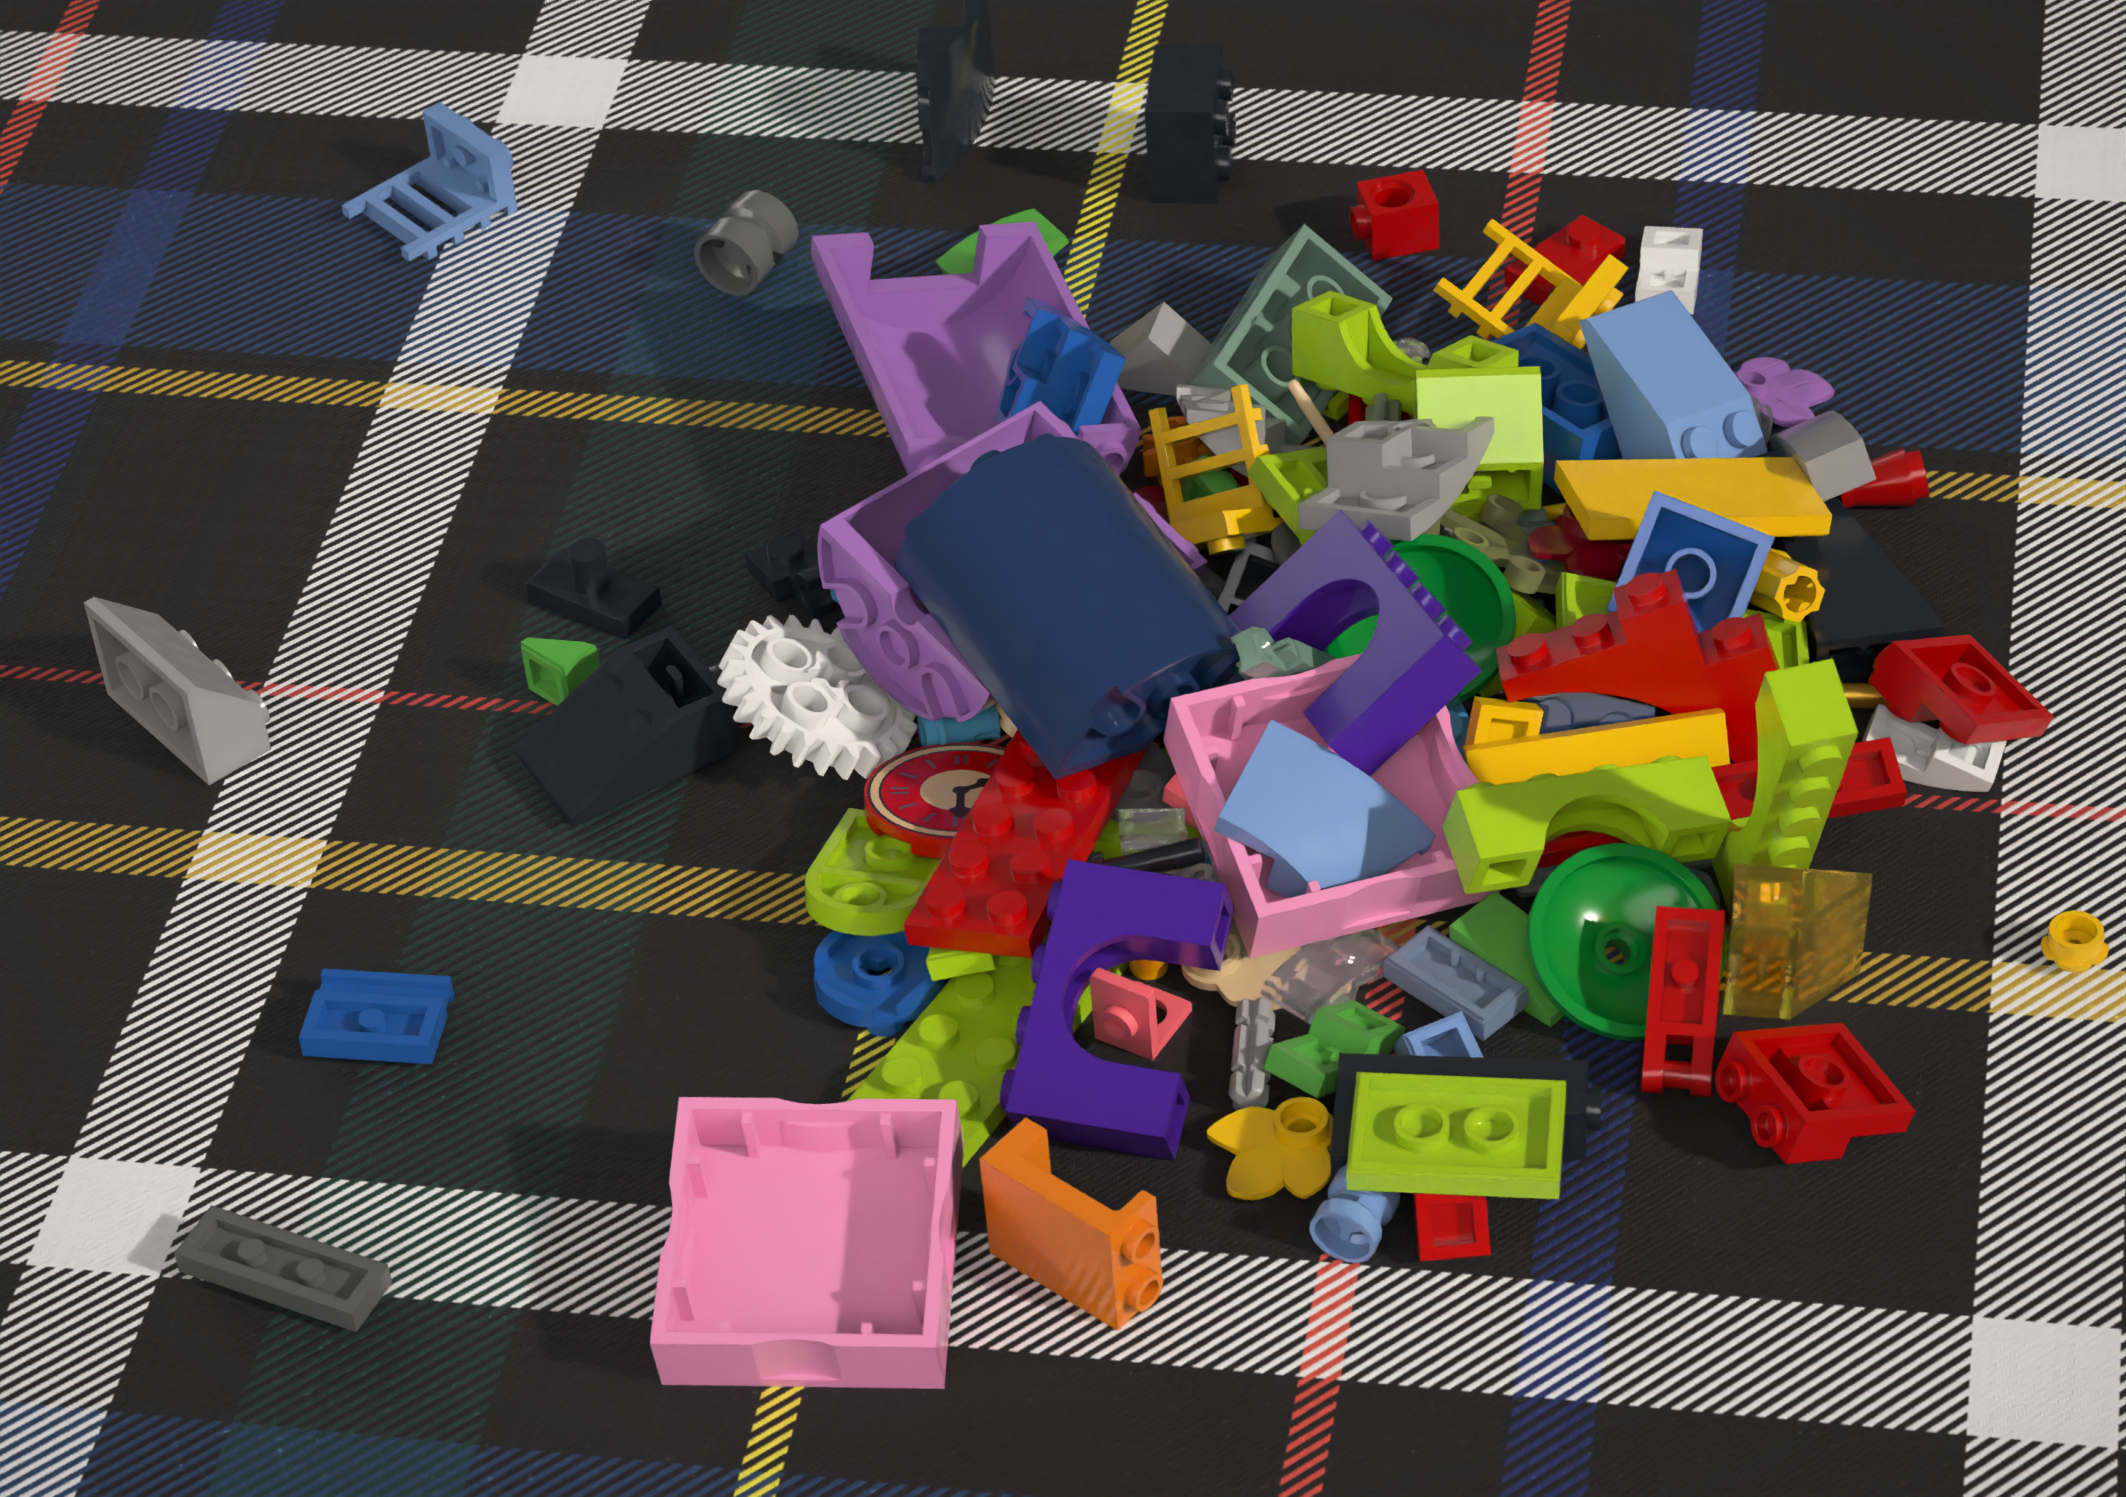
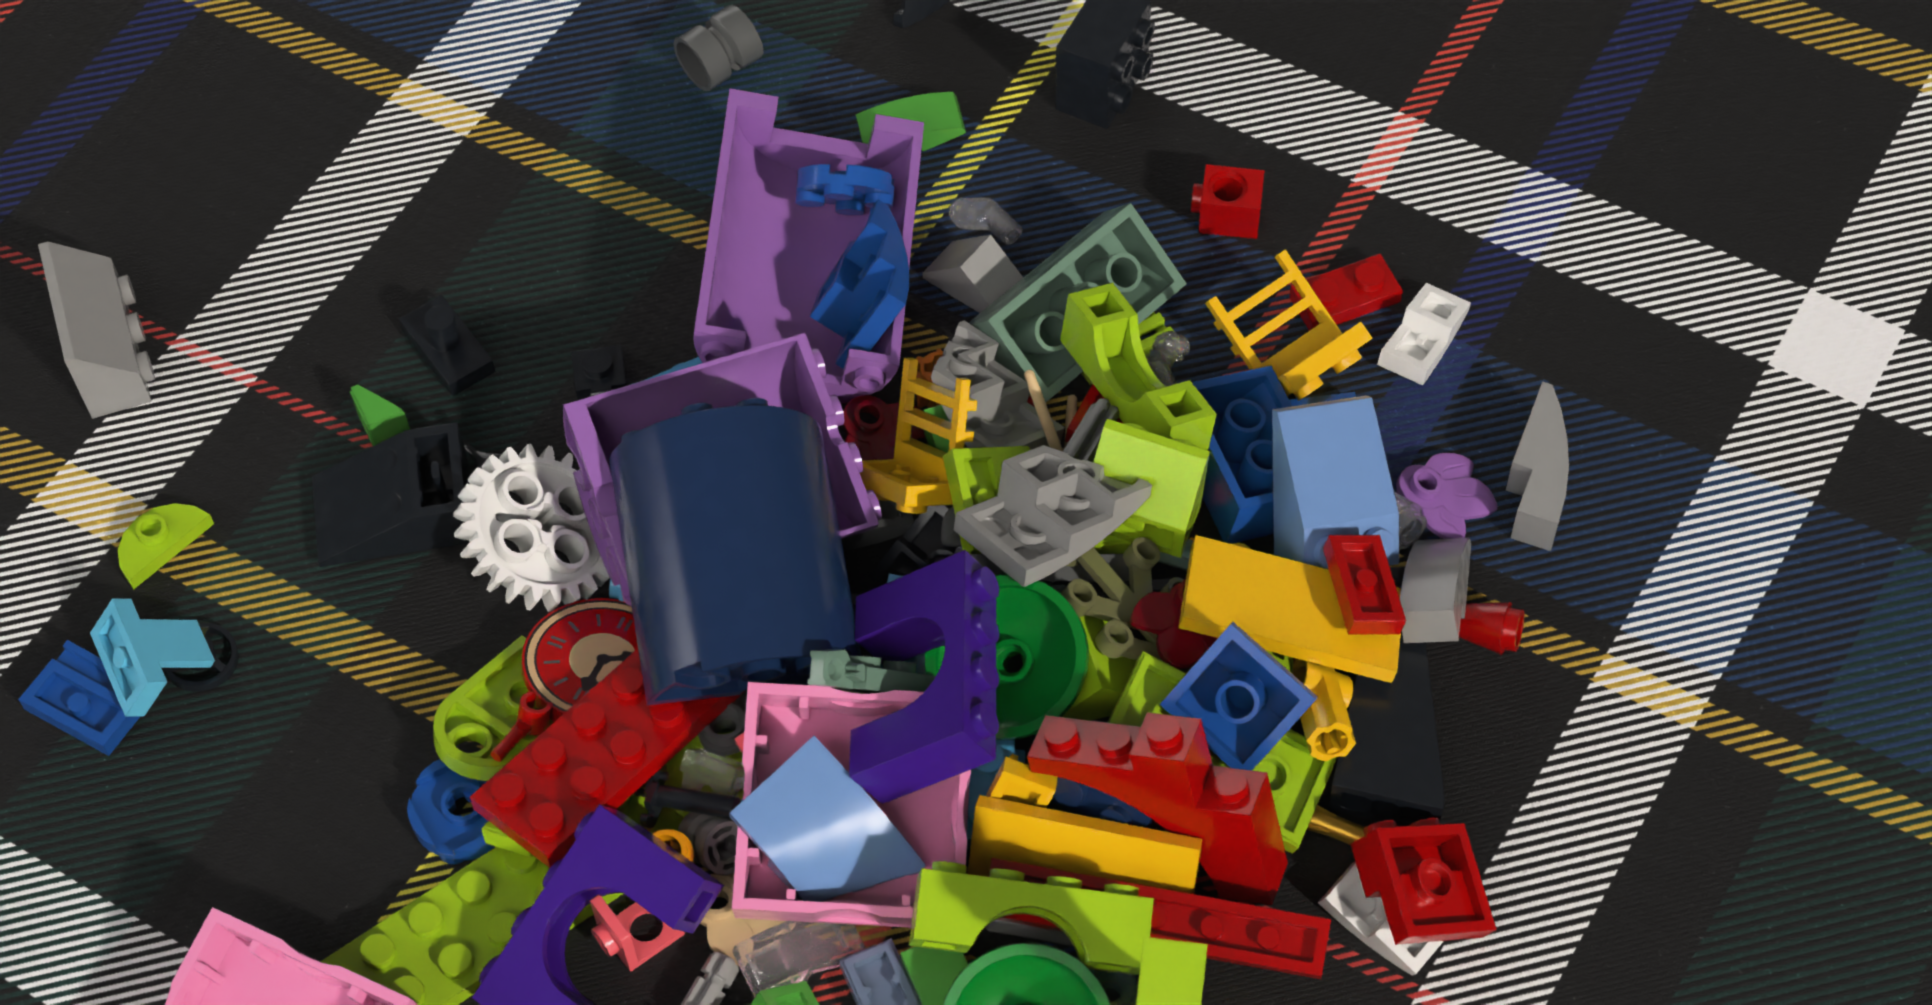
camera: 20 degrees right, 15 degrees up
(365, 857) = (158, 538): none -> lime plate
(438, 943) = (139, 648): none -> medium azure piece
(915, 859) = (528, 723): none -> red hand
(978, 306) = (846, 189): none -> blue plate
(1126, 306) = (985, 214): none -> clear arm
(1756, 450) = (1364, 585): none -> red plate
(1865, 340) = (1540, 472): none -> light grey slope

